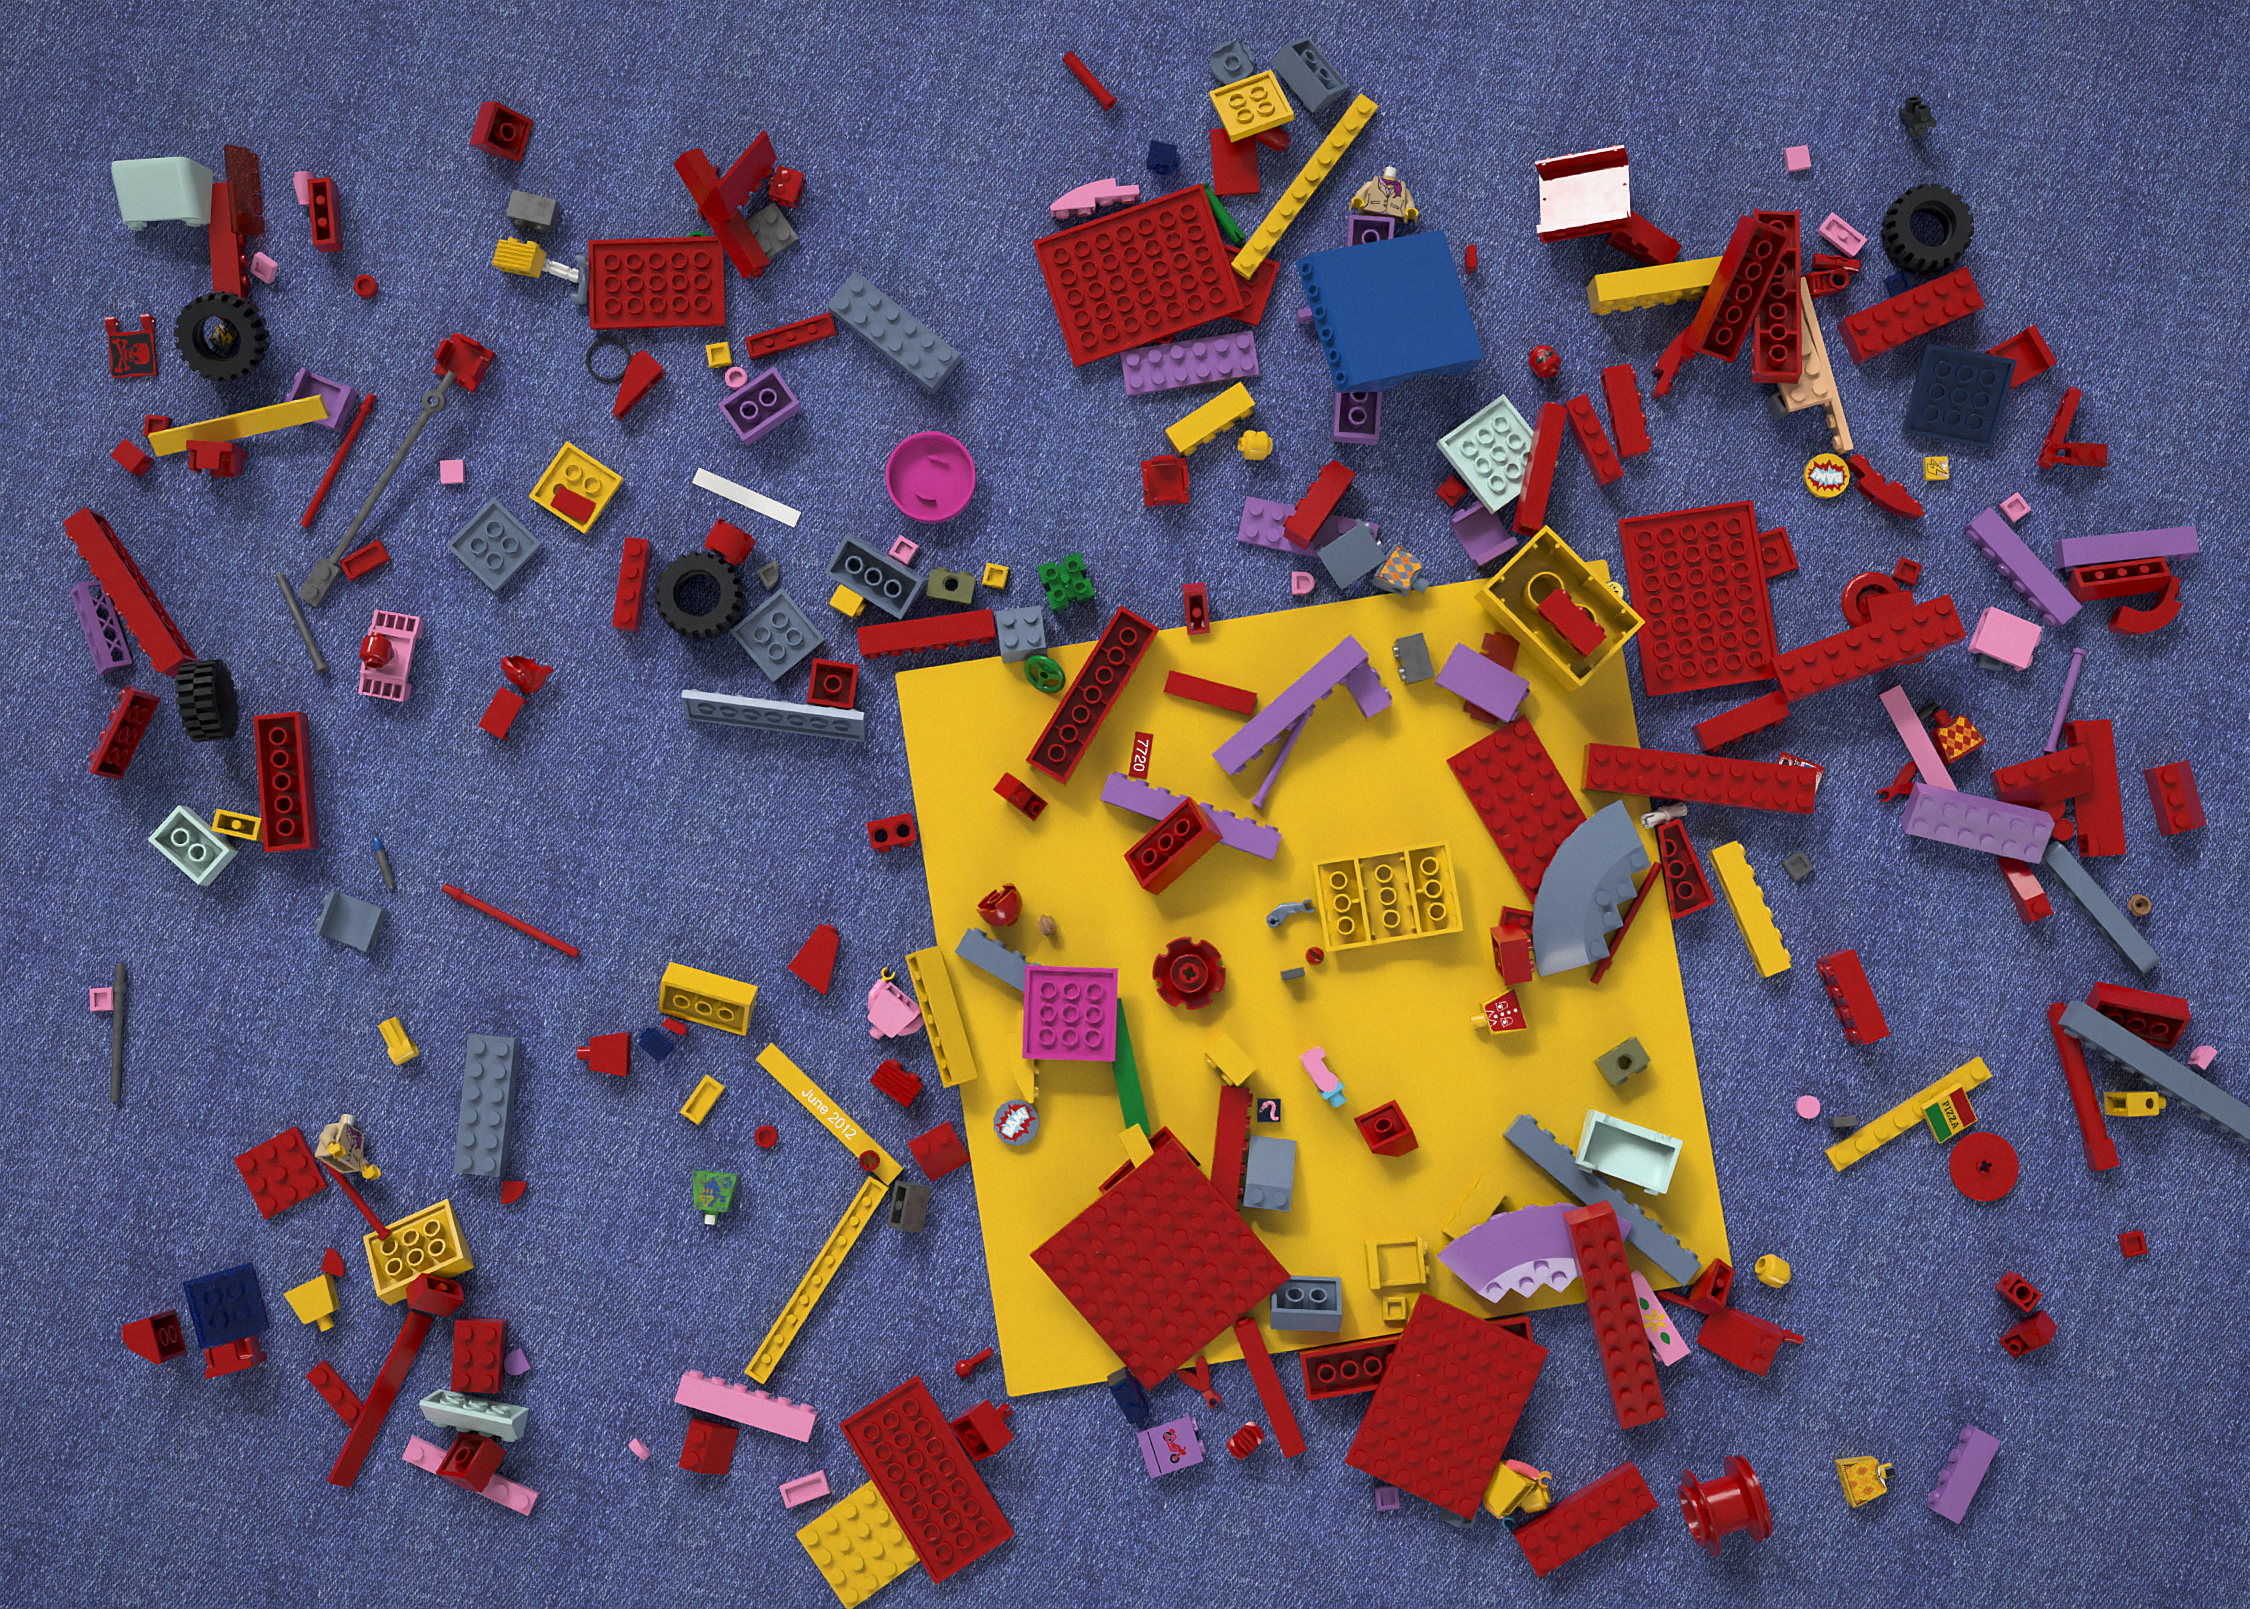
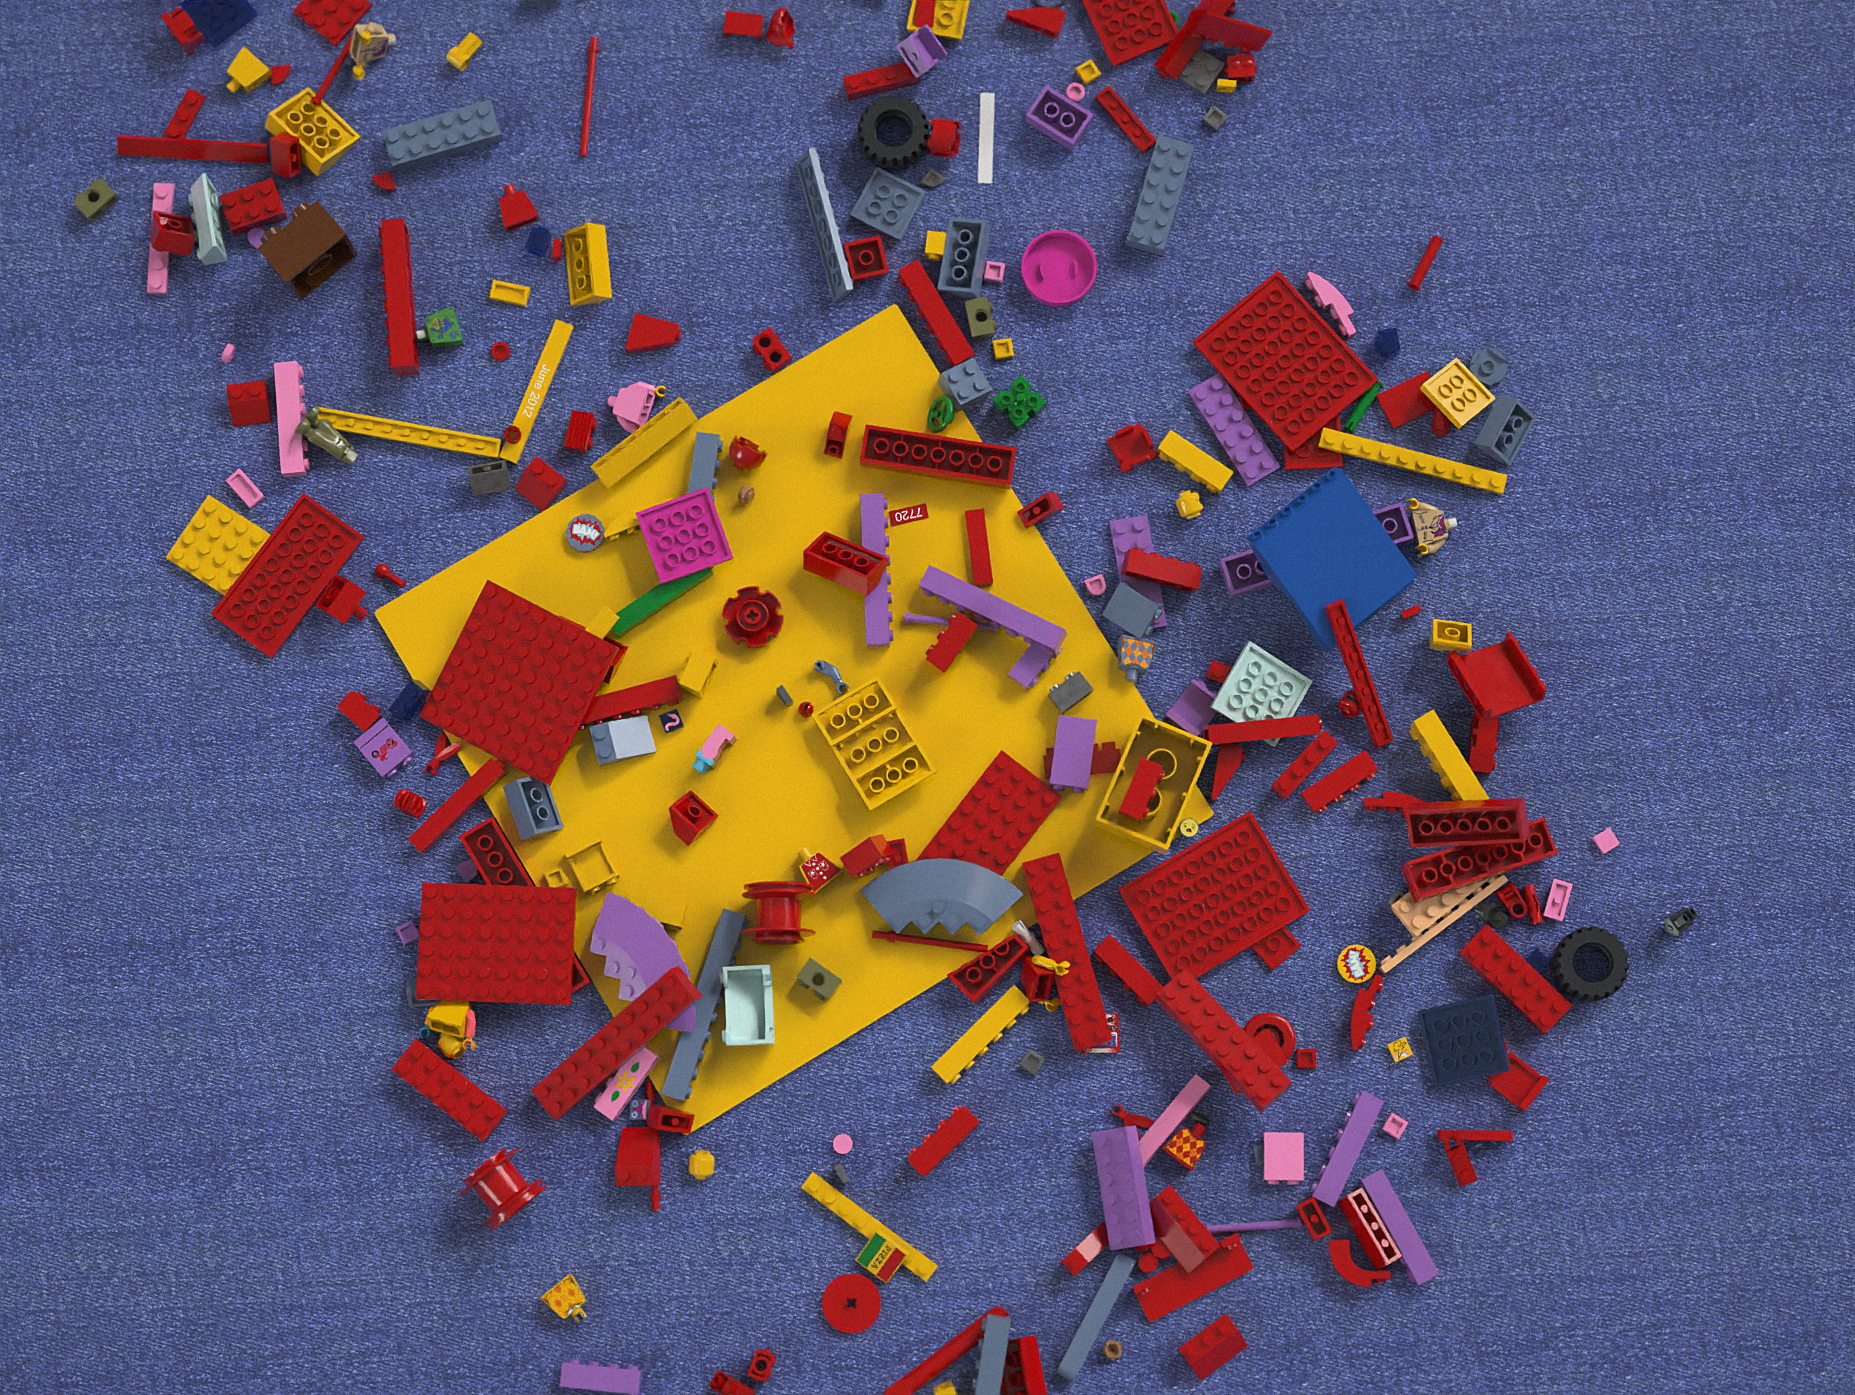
camera: 75 degrees right, 5 degrees down
(396, 1521) = (106, 199): none -> olive brick
(558, 1315) = (306, 249): none -> reddish brown brick
(619, 526) = (921, 50): none -> medium lavender panel
(656, 1227) = (400, 297): none -> red brick
(784, 1374) = (326, 436): none -> olive piece
(799, 210) = (1226, 86): none -> yellow tile
(830, 239) = (1215, 118): none -> flat silver tile
(1116, 1456) = (359, 711): none -> red brick
(1309, 765) = (951, 641): none -> red brick
(1344, 1405) = (467, 871): none -> medium lavender tile
(1516, 225) = (1450, 636): none -> yellow slope
(1521, 338) = (1358, 673): none -> red tile
(1539, 1077) = (778, 912): none -> red wheel
(1564, 525) = (1227, 763): none -> red slope
(1685, 1315) = (639, 1109): none -> tile
(1715, 820) = (1038, 978): none -> red torso
(1836, 310) = (1491, 915): none -> pearl dark grey hips
(2085, 634) = (1313, 1219): none -> red brick

